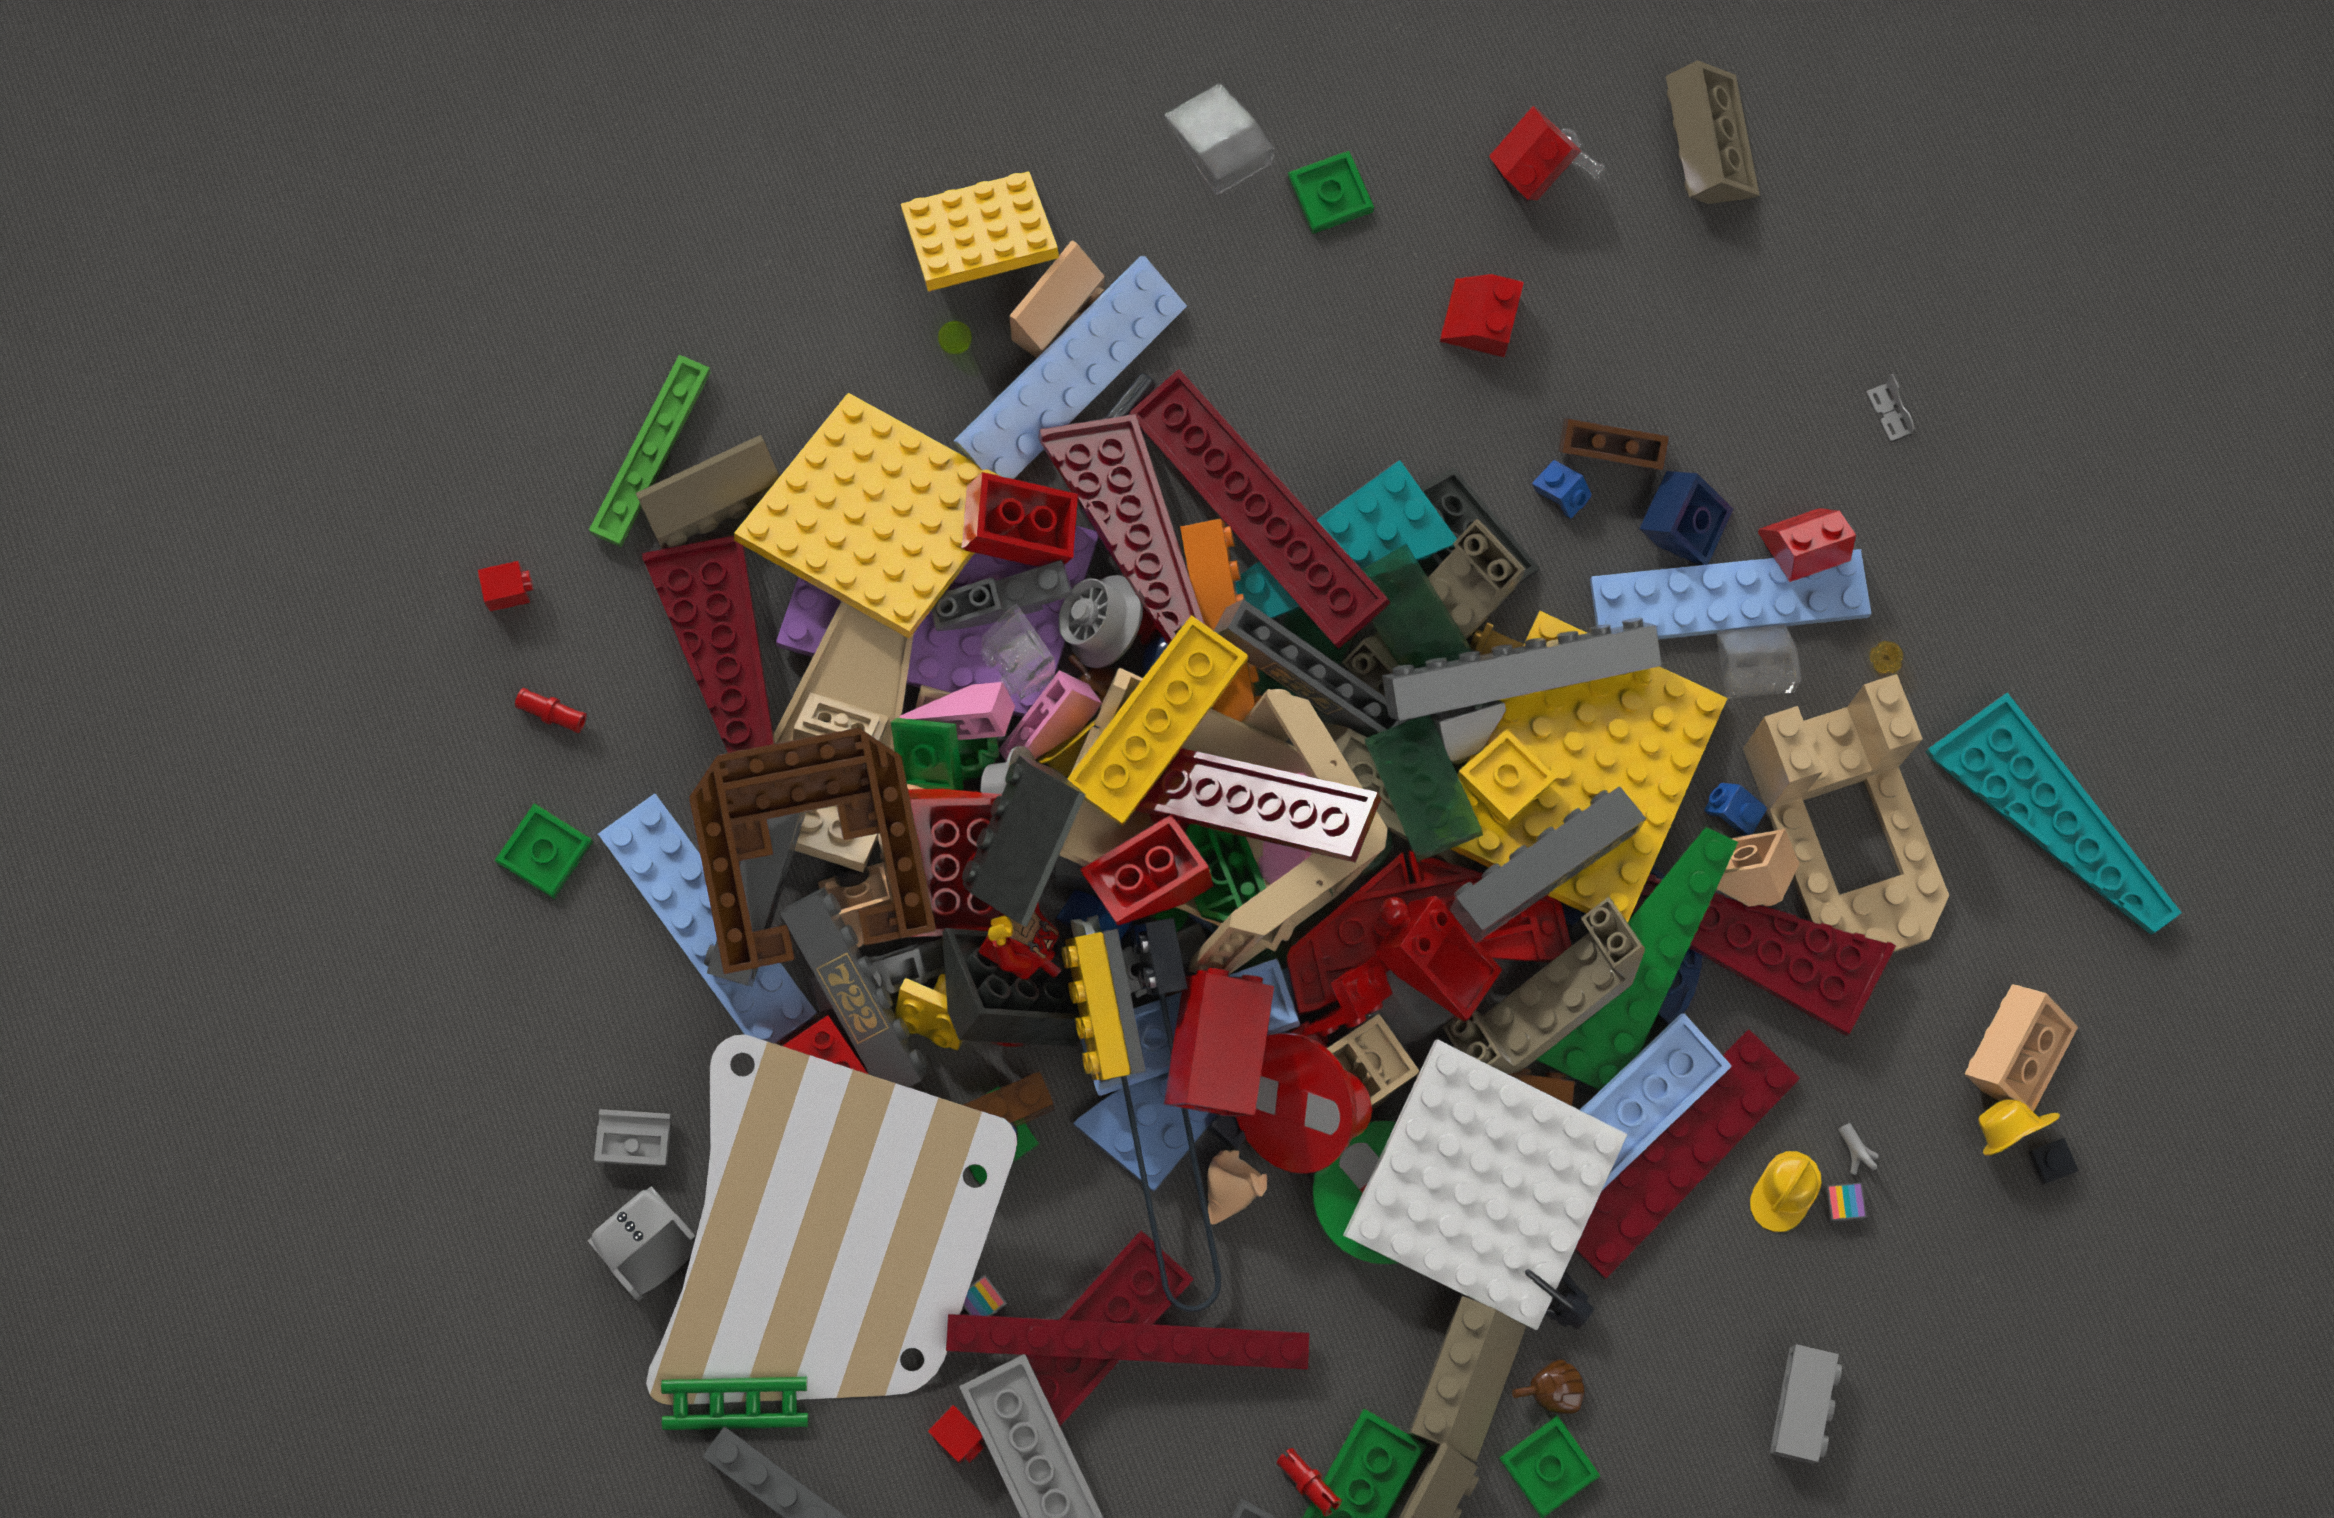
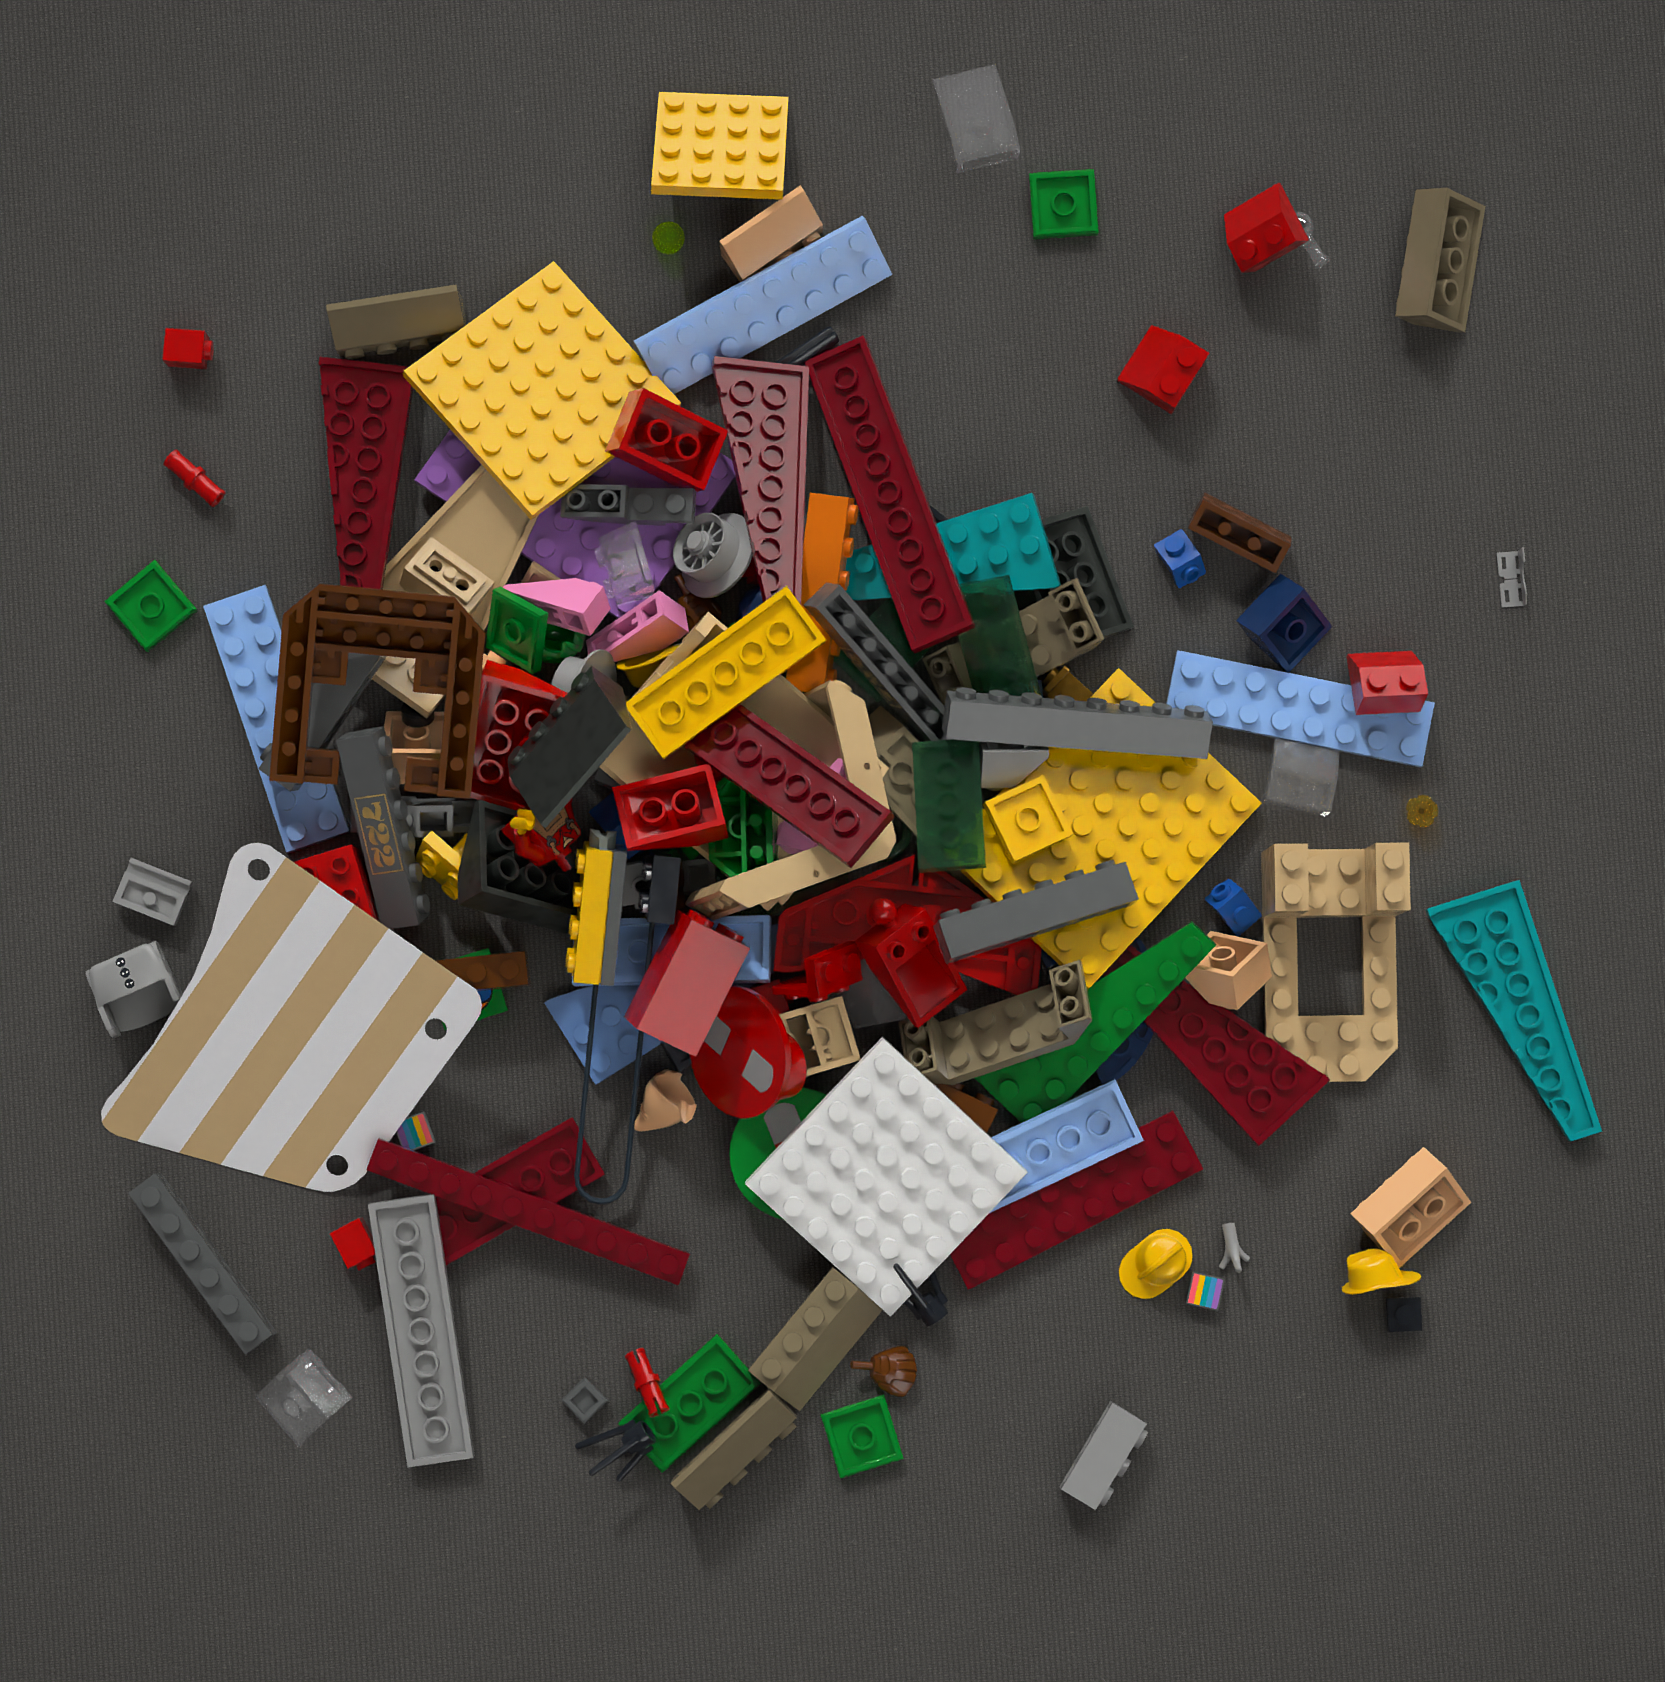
camera: 20 degrees right, 10 degrees up
(650, 450) = (356, 259): bright green plate -> none
(718, 1386) = (153, 1159): green bar -> none

